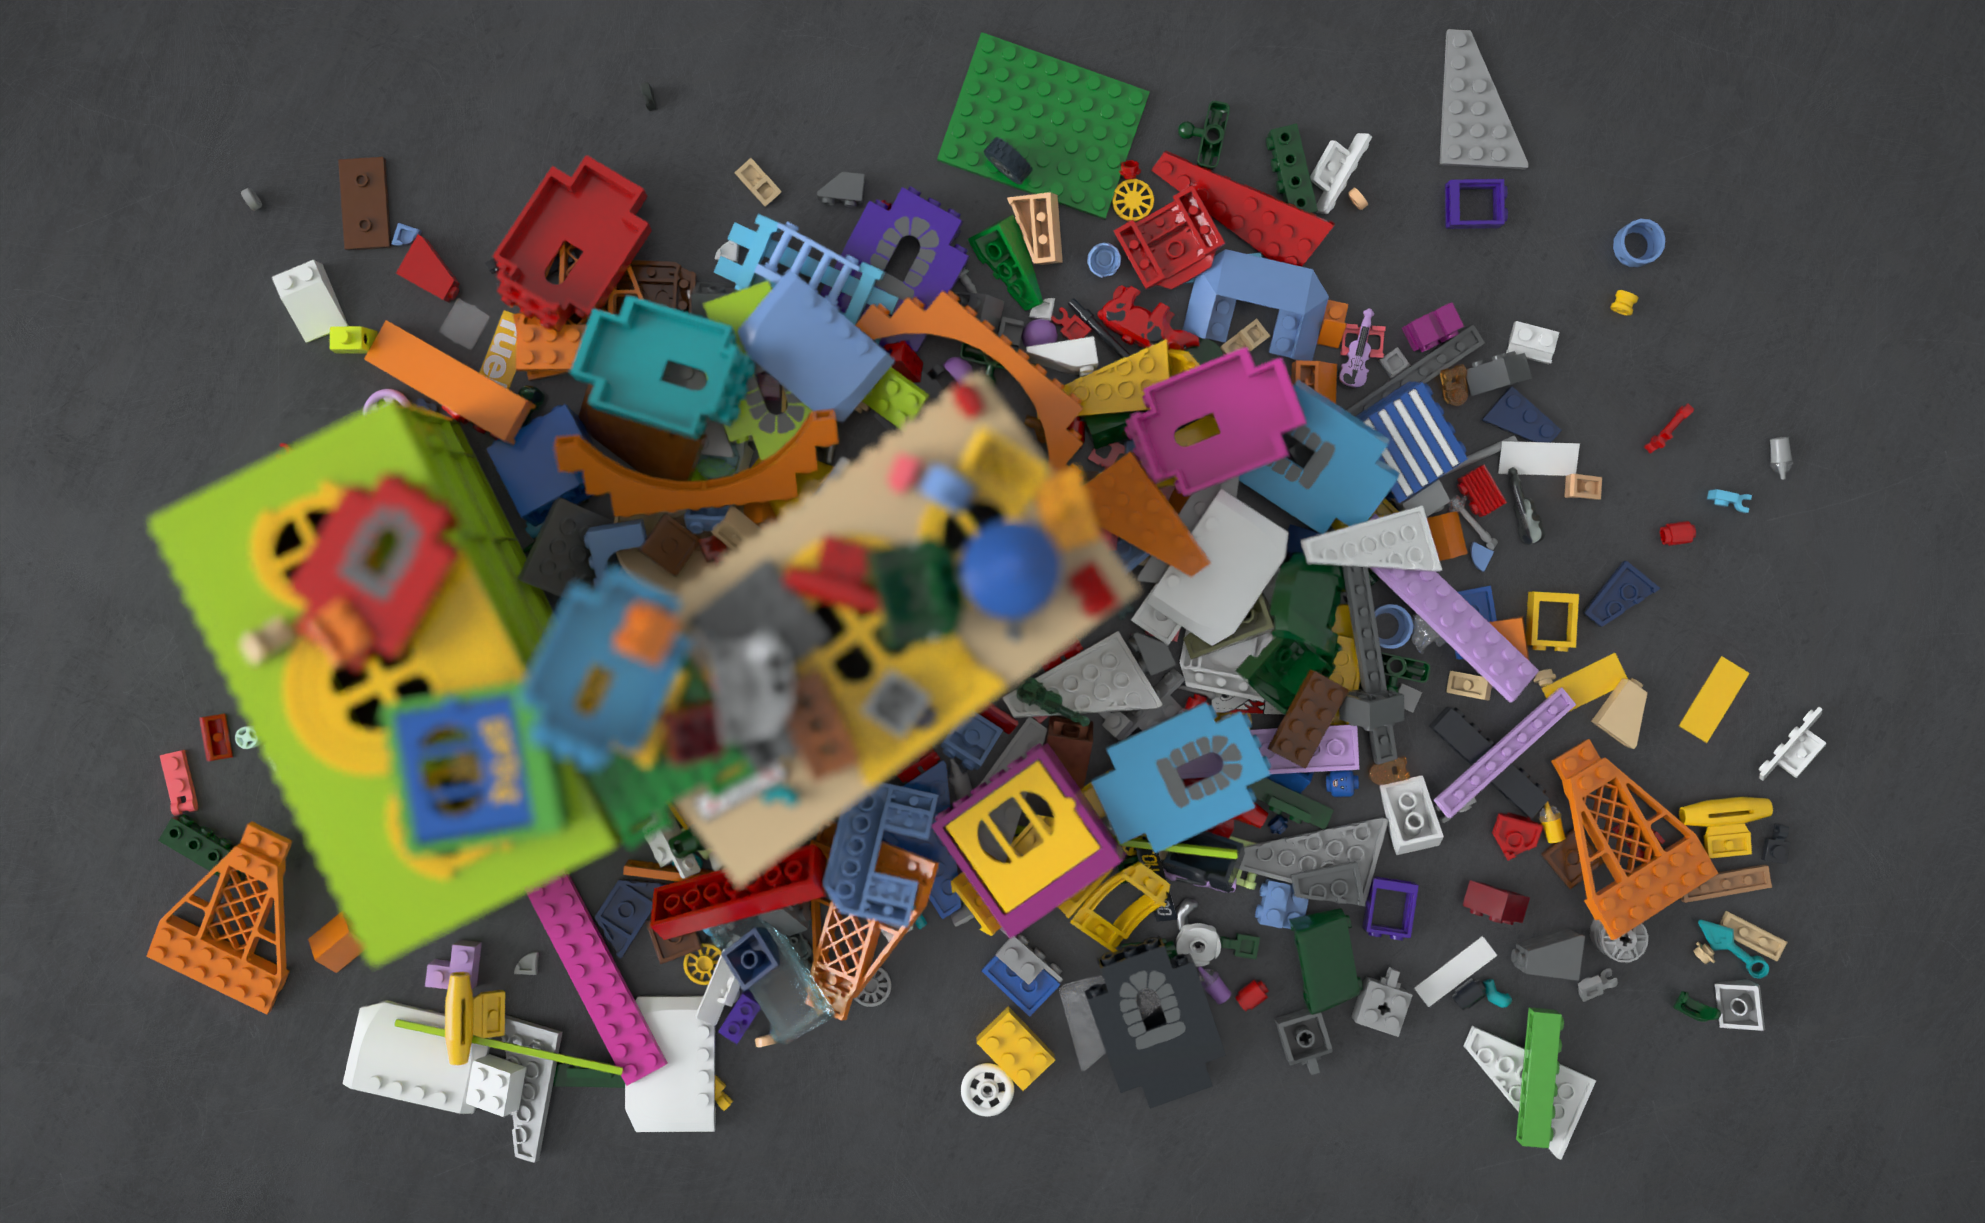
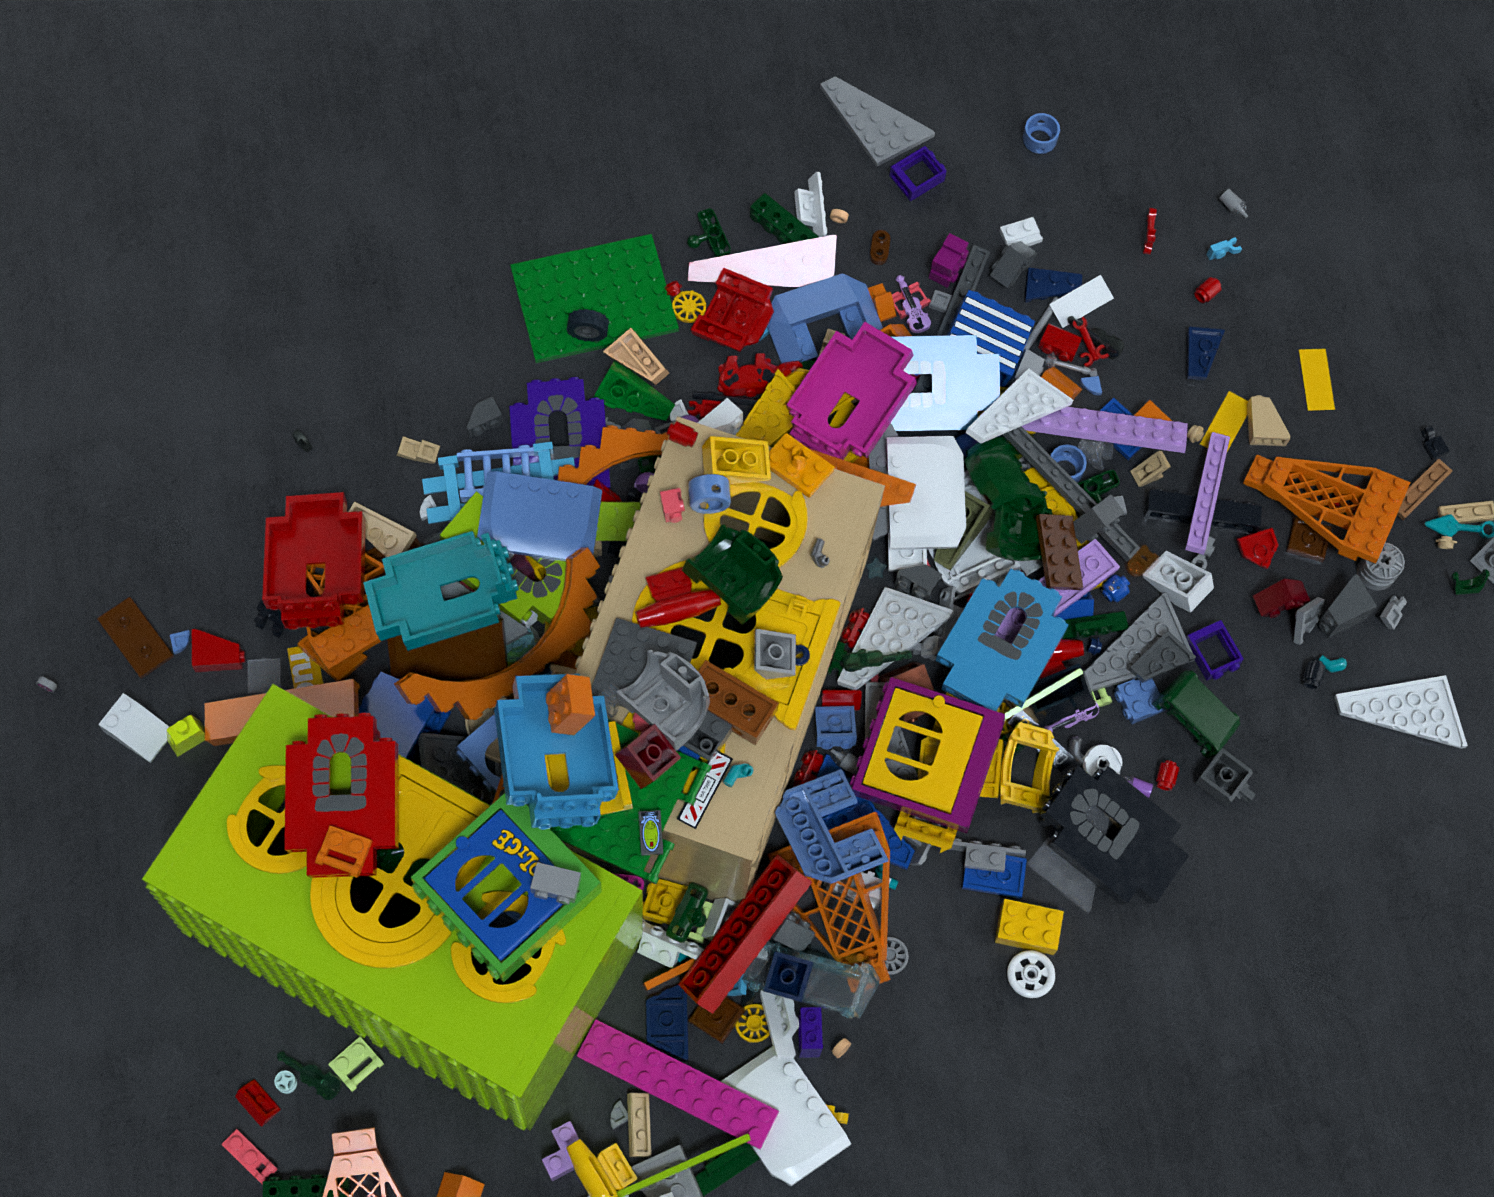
camera: 40 degrees left, 20 degrees down
(267, 640) = (288, 905): tan slope -> none
(510, 810) = (555, 883): none -> light grey brick
(539, 986) = (639, 1125): none -> tan tile
(654, 802) = (651, 833): none -> tile
(665, 256) = (385, 534): none -> tan wing
(1011, 569) = (792, 503): blue cone -> none
(1092, 589) = (853, 501): red brick -> none
(1104, 260) = (697, 353): light blue hair -> none
(1244, 945) = (1134, 745): dark green plate -> none
(1376, 261) = (881, 246): none -> reddish brown plate
(1376, 993) = (1271, 724): light grey hinge -> none
(1455, 971) = (1292, 670): white sticker -> none
(1457, 392) = (995, 292): clear orange plate -> none
(1506, 525) = (1094, 354): none -> red bar
(1506, 937) = (1307, 618): none -> light grey wing
(1533, 616) = (1172, 373): yellow window -> none
(1539, 1077) = (1405, 695): bright green brick -> none
(1552, 823) = (1274, 520): yellow piece -> none
(1583, 486) = (1122, 298): light nougat slope -> none
(1624, 302) = (1060, 174): yellow wheel -> none
(1726, 823) = (1387, 446): yellow plate -> none
(1798, 751) = (1396, 374): white bracket -> none

